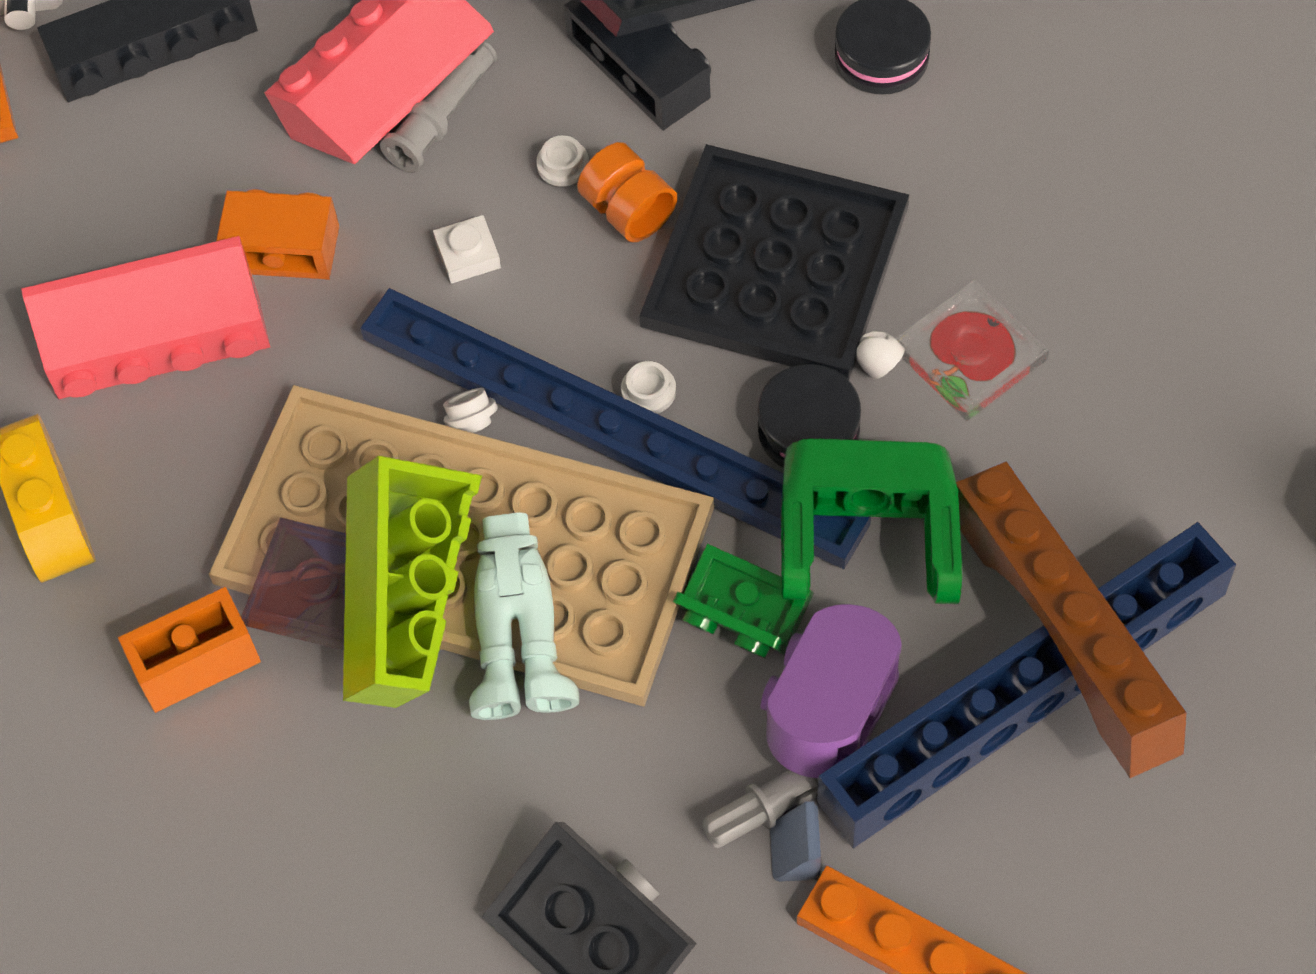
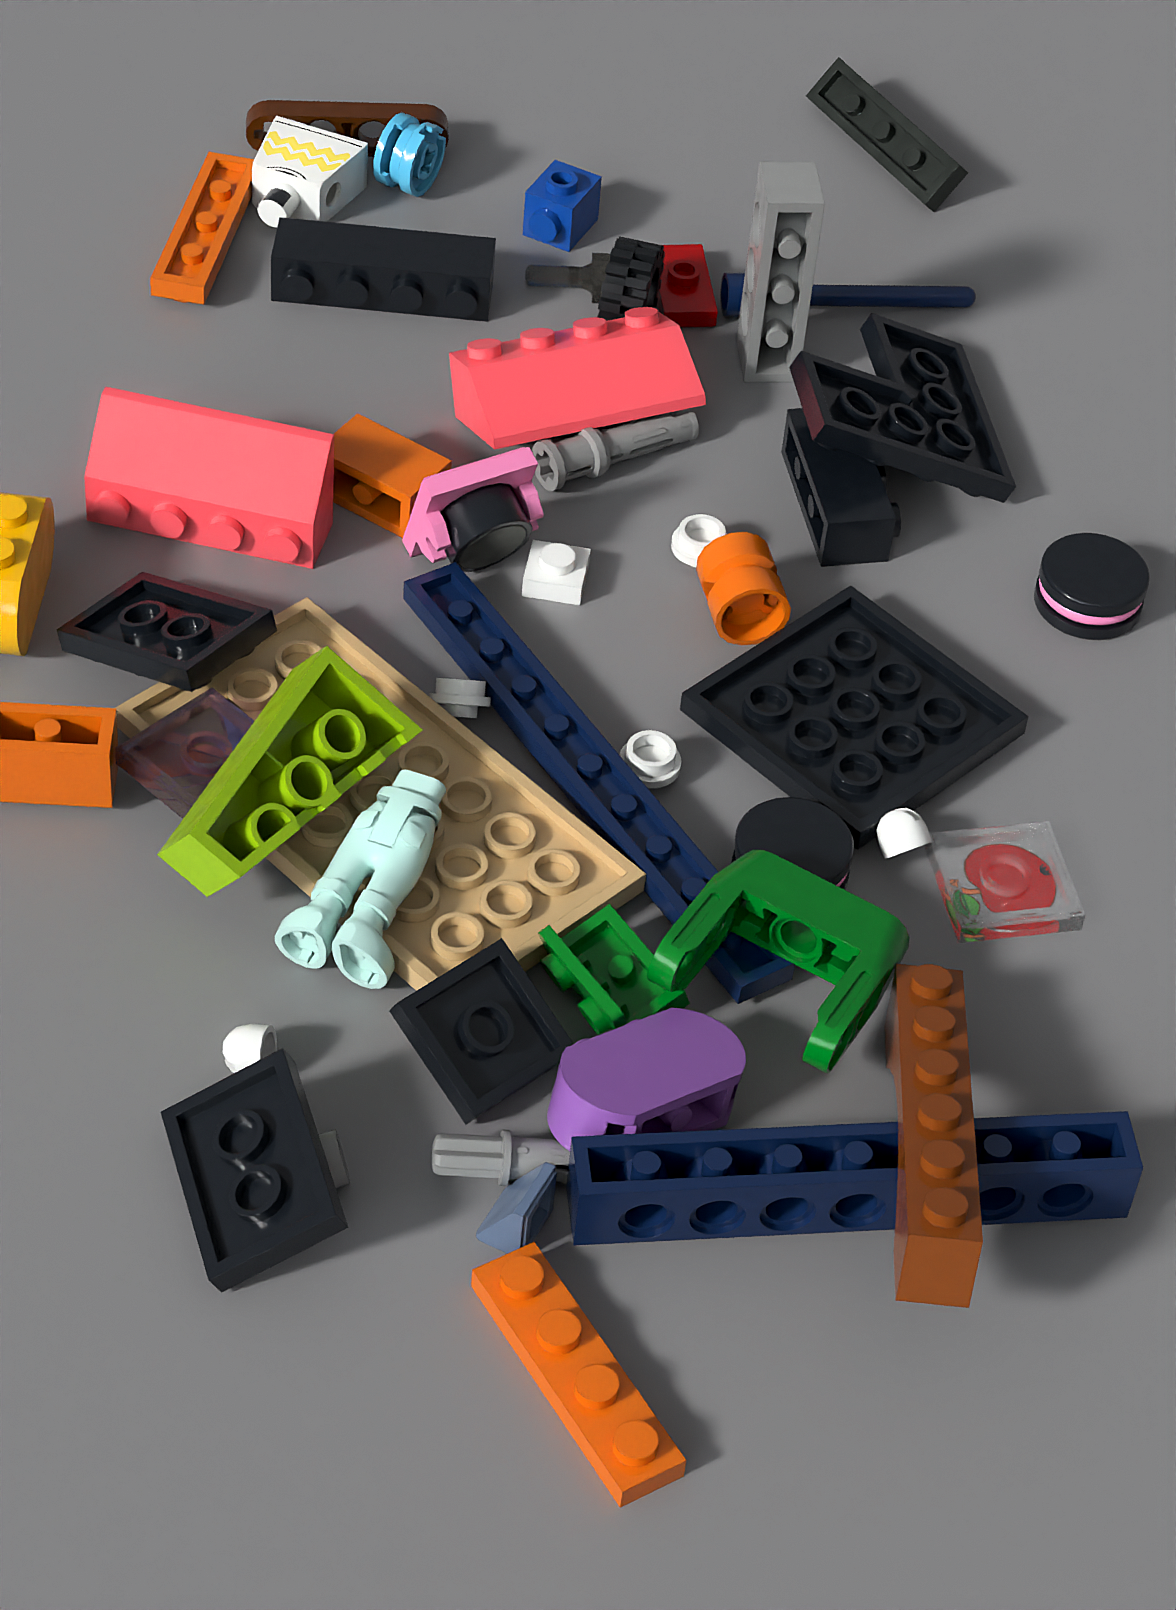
camera: 20 degrees right, 15 degrees down
(206, 481) = (167, 631): none -> black plate
(383, 237) = (476, 511): none -> piece
(512, 822) = (248, 1045): none -> white hinge
(682, 709) = (482, 1030): none -> black plate

